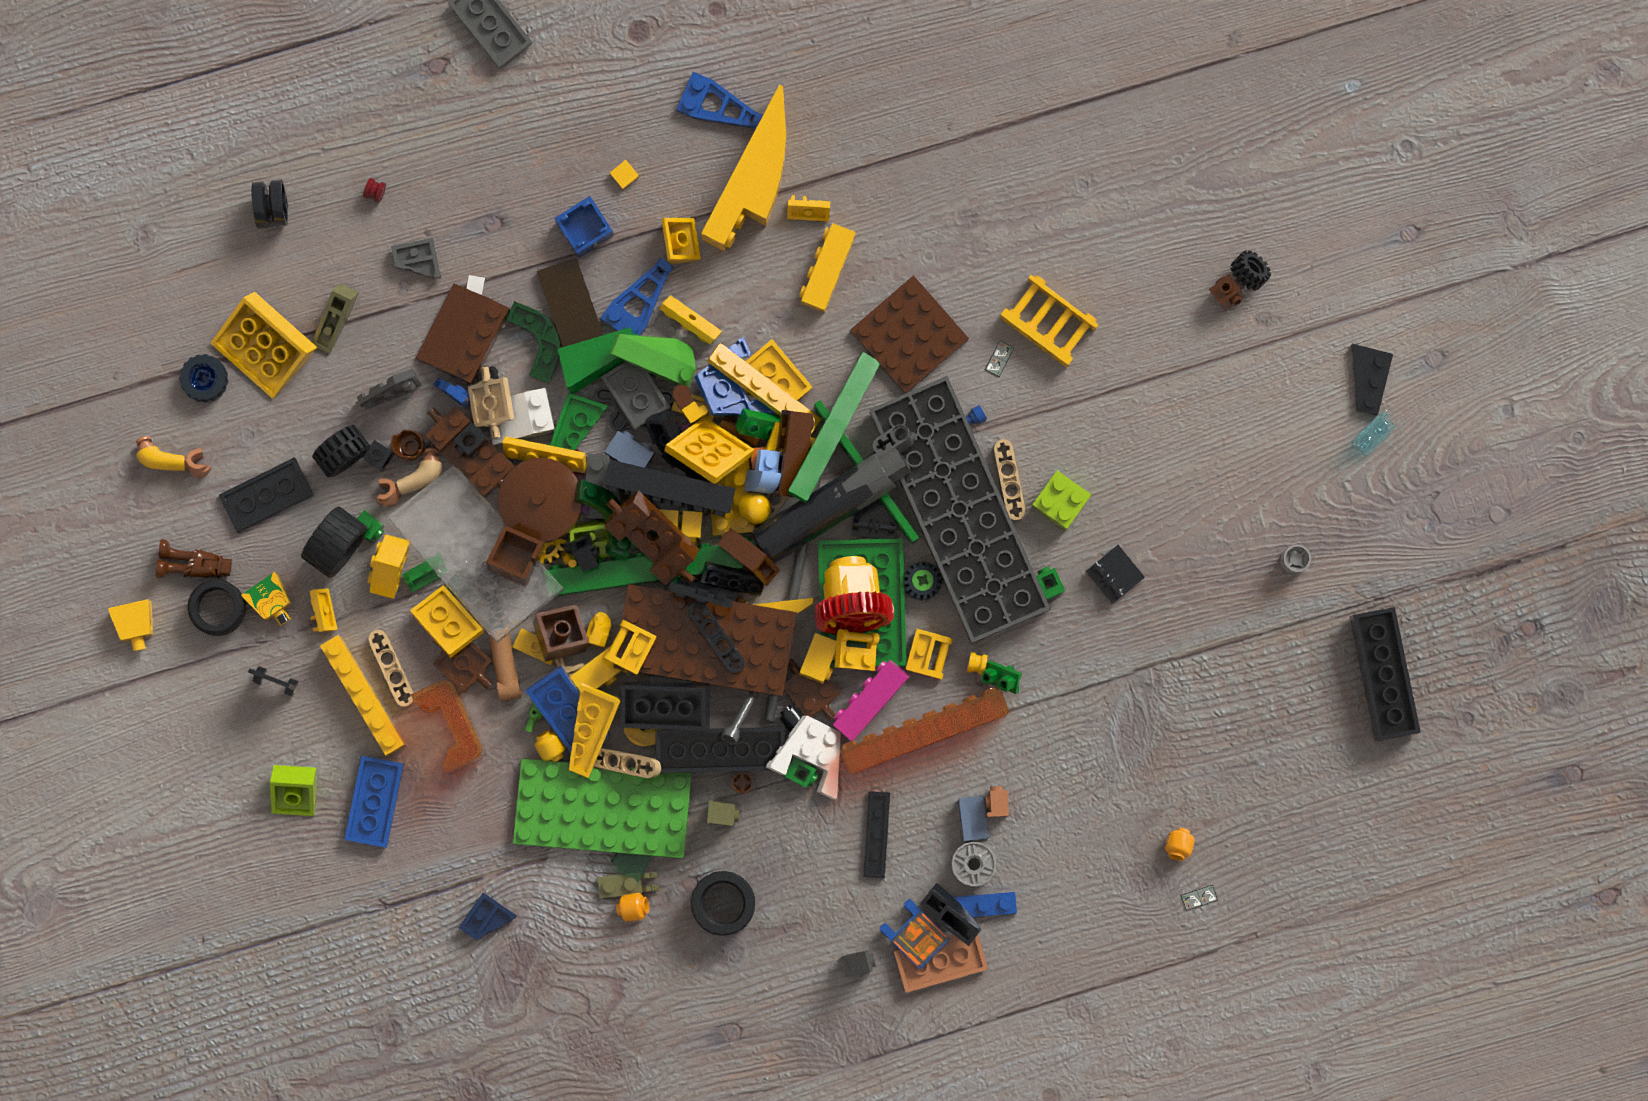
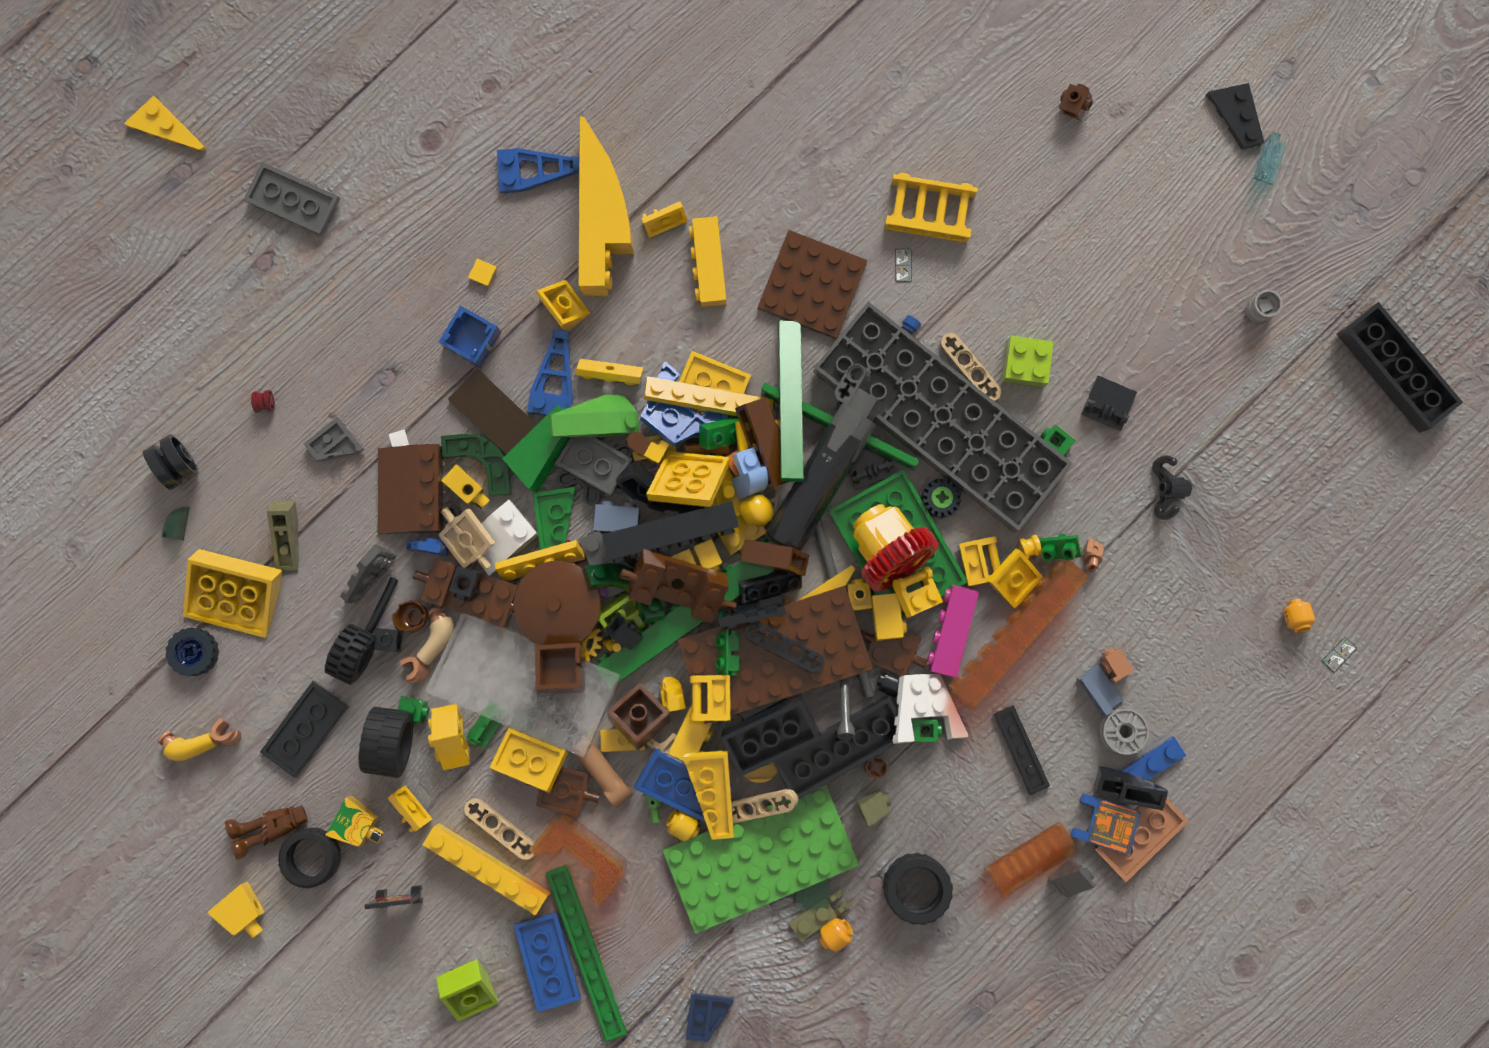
camera: 20 degrees left, 0 degrees up
(244, 259) = (176, 523): none -> clear green brick
(387, 421) = (381, 605): none -> black bar
(410, 812) = (586, 953): none -> green tile
(511, 347) = (458, 479): none -> yellow torso
(667, 608) = (726, 663): none -> green hinge
(805, 636) = (863, 603): none -> yellow brick
(834, 933) = (1031, 859): none -> clear orange brick
(948, 683) = (1015, 578): none -> yellow plate
(1029, 698) = (1093, 555): none -> nougat piece
(1127, 675) = (1169, 488): none -> black piece
(1250, 270) = (1086, 71): black tyre -> none

